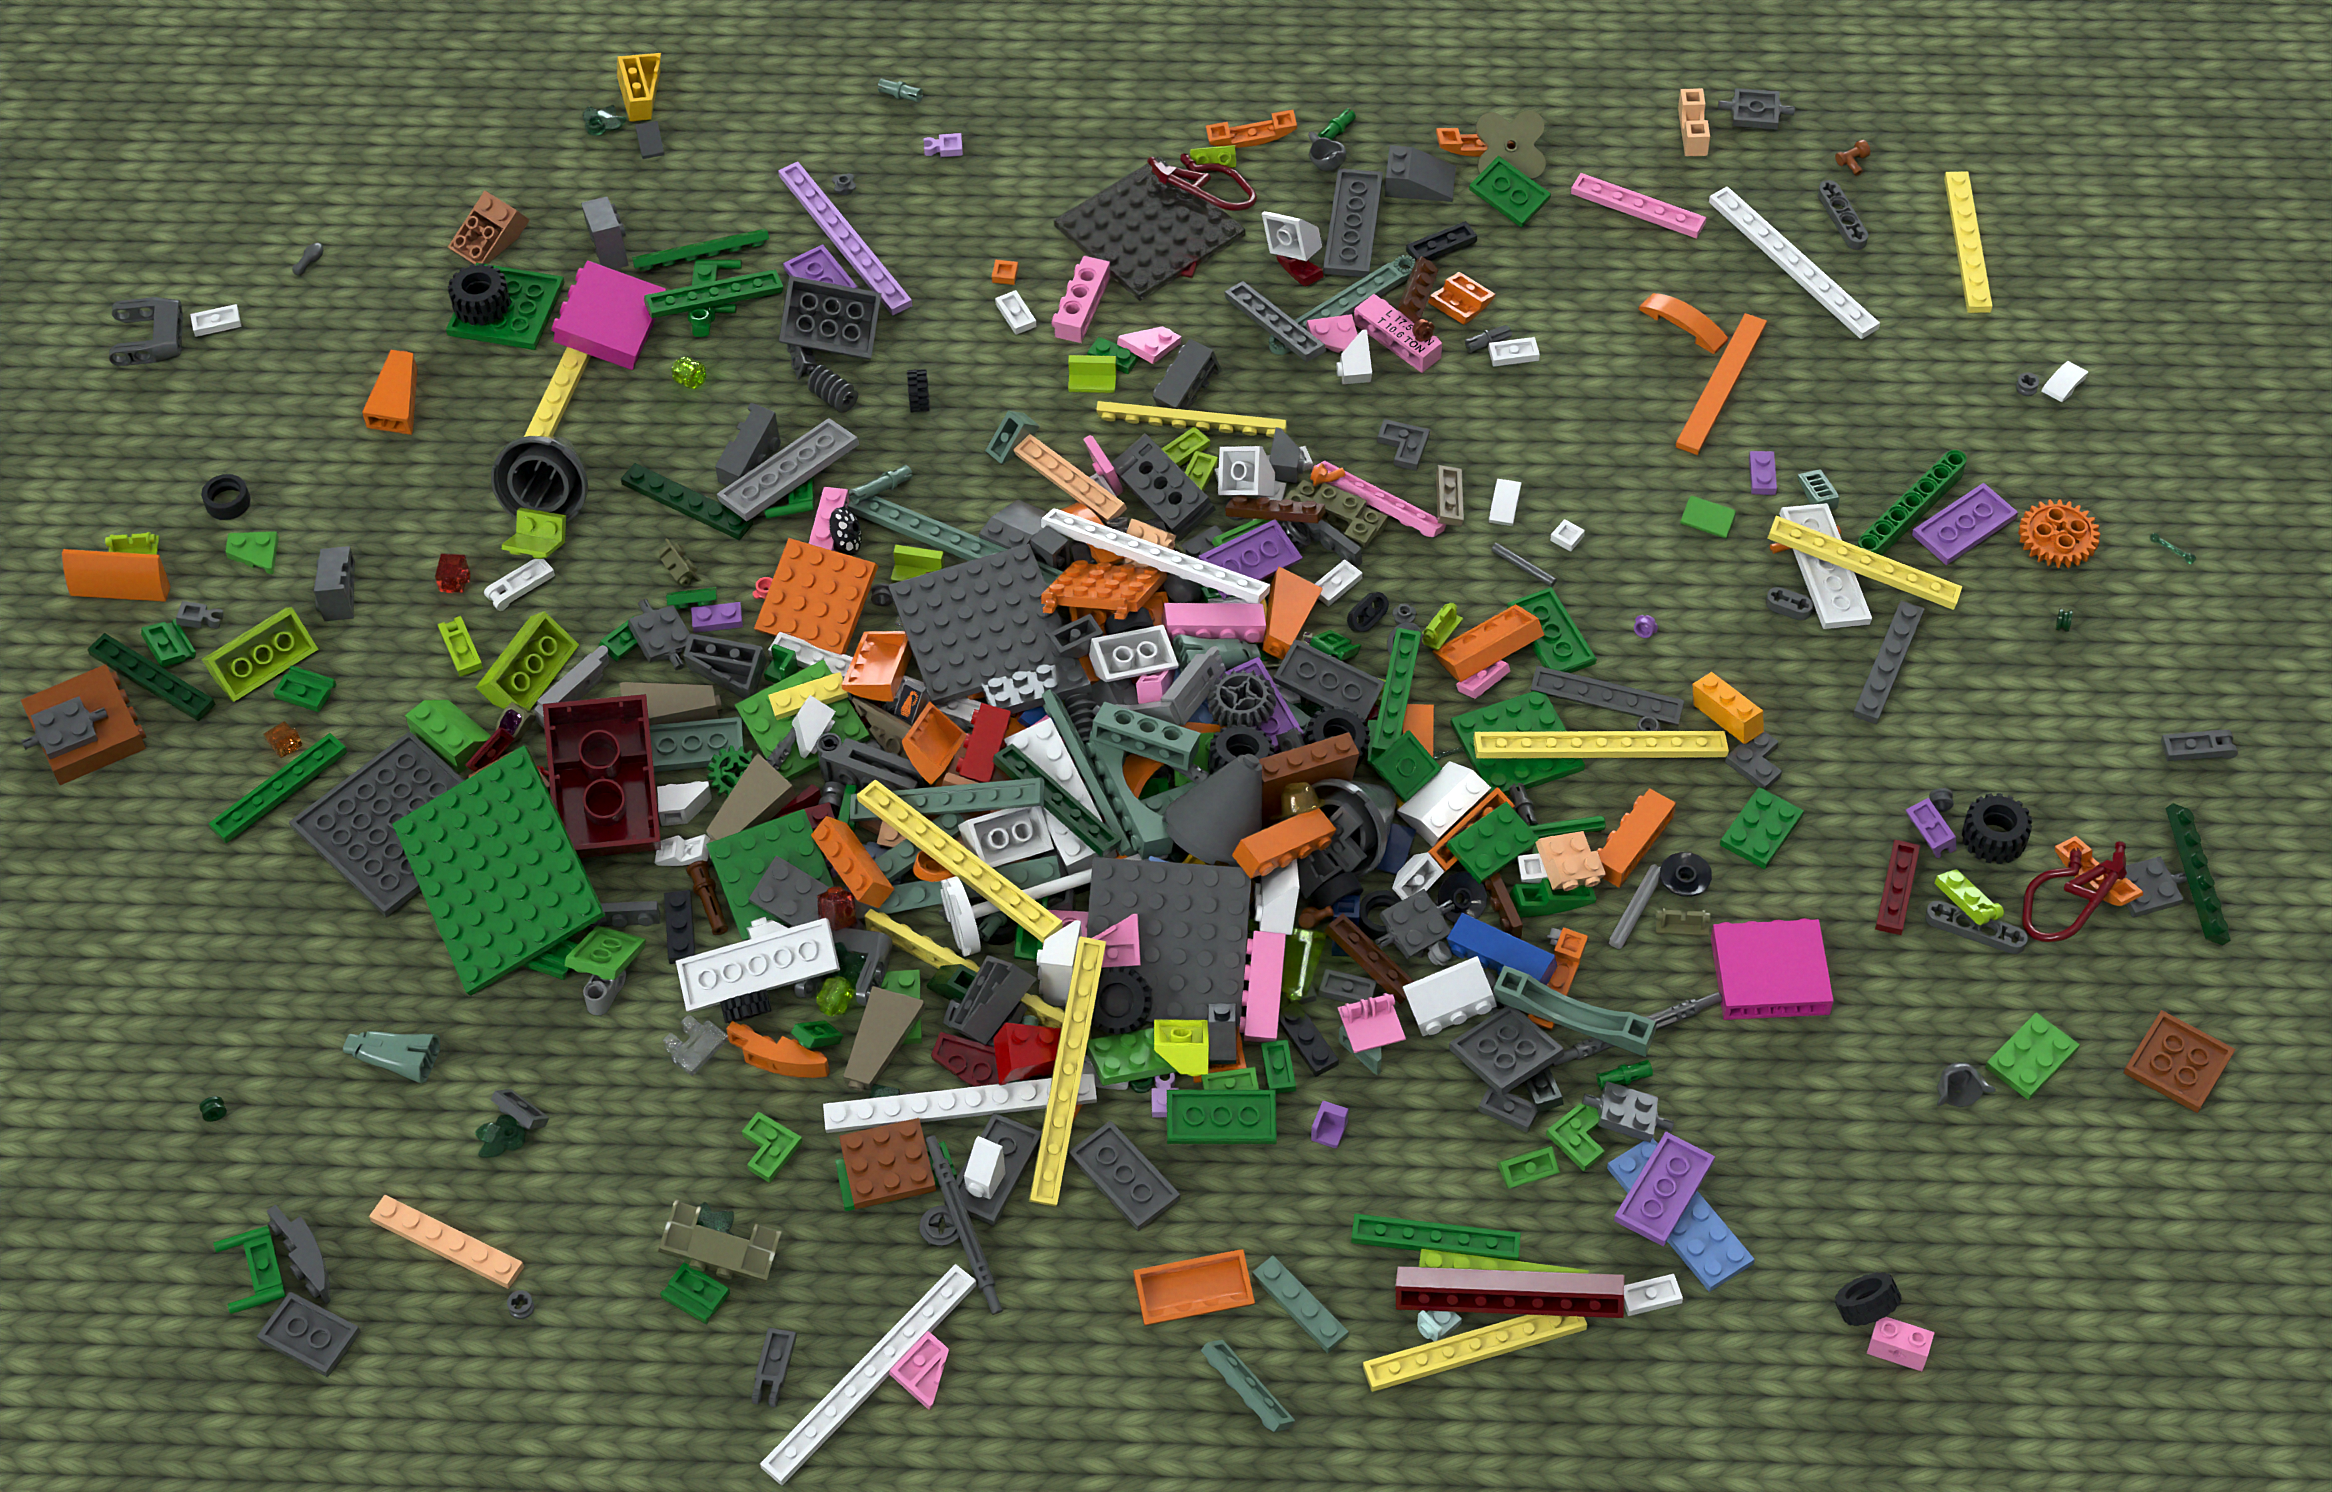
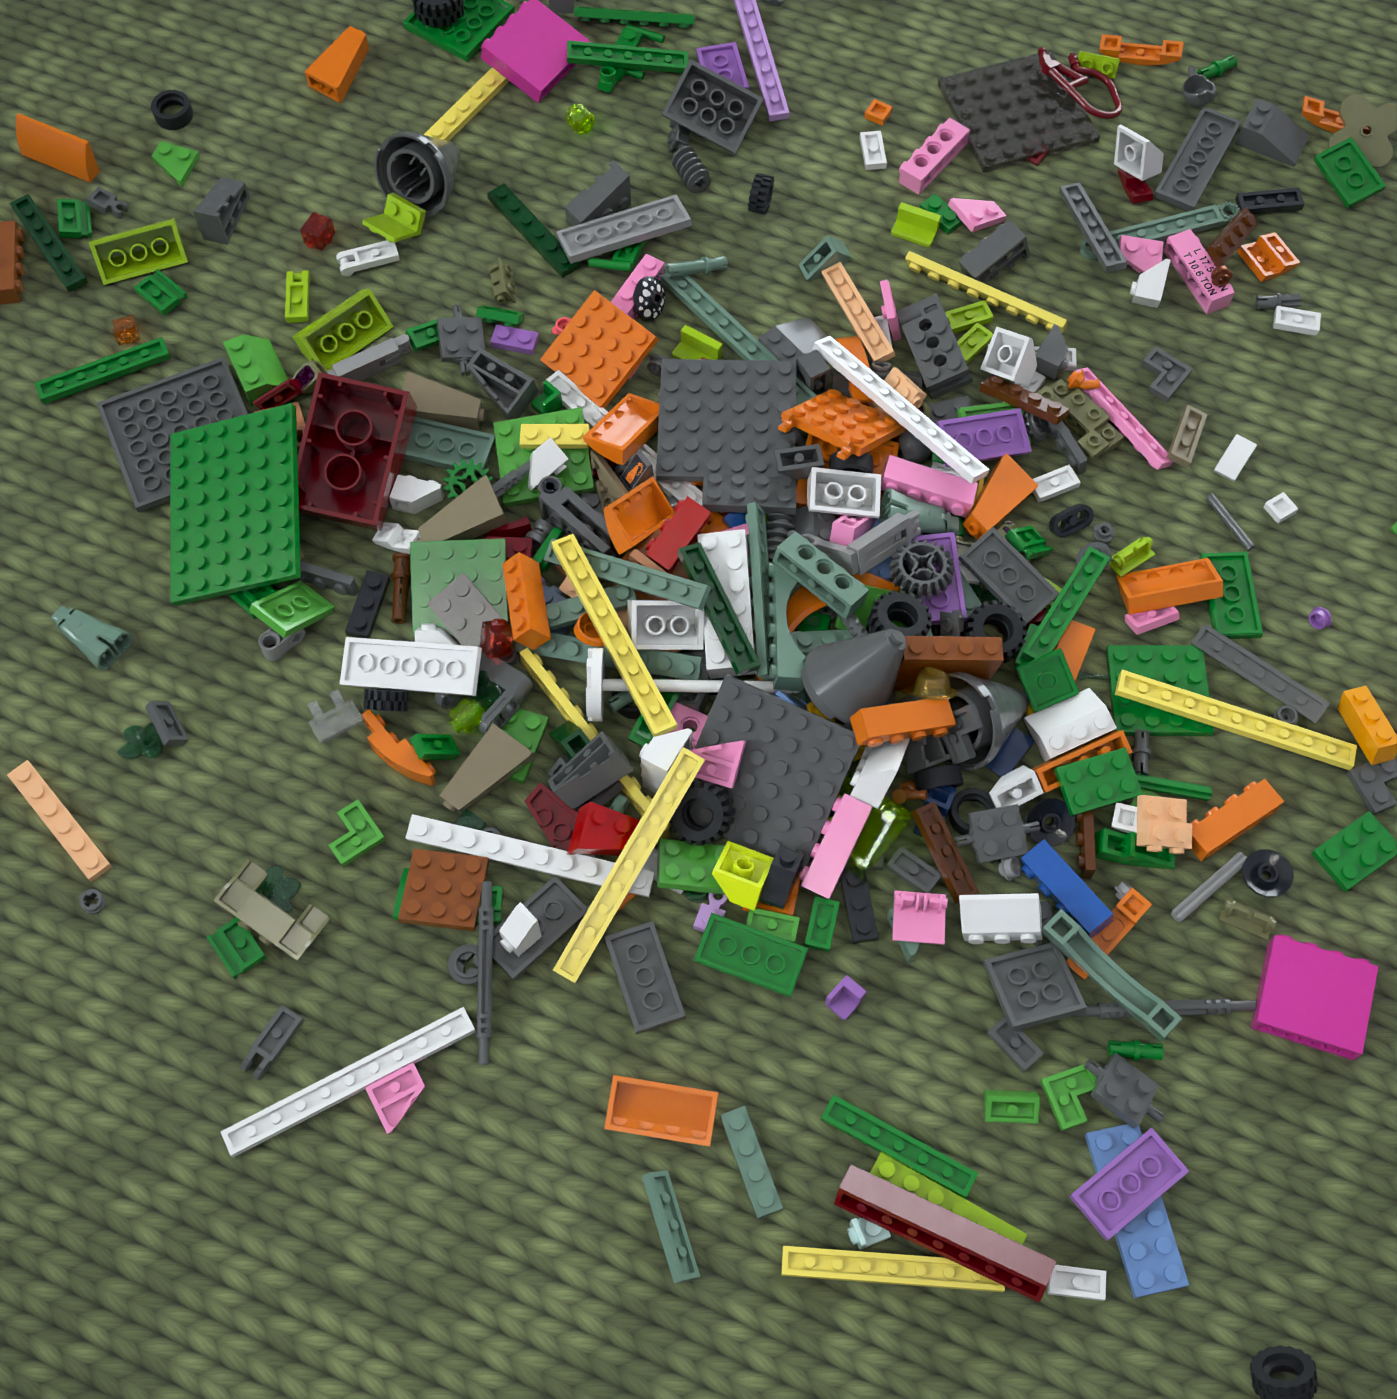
camera: 20 degrees right, 10 degrees up
(139, 543) = (83, 127): lime hinge -> none
(1544, 1090) = (1053, 1040): pearl dark grey plate -> none

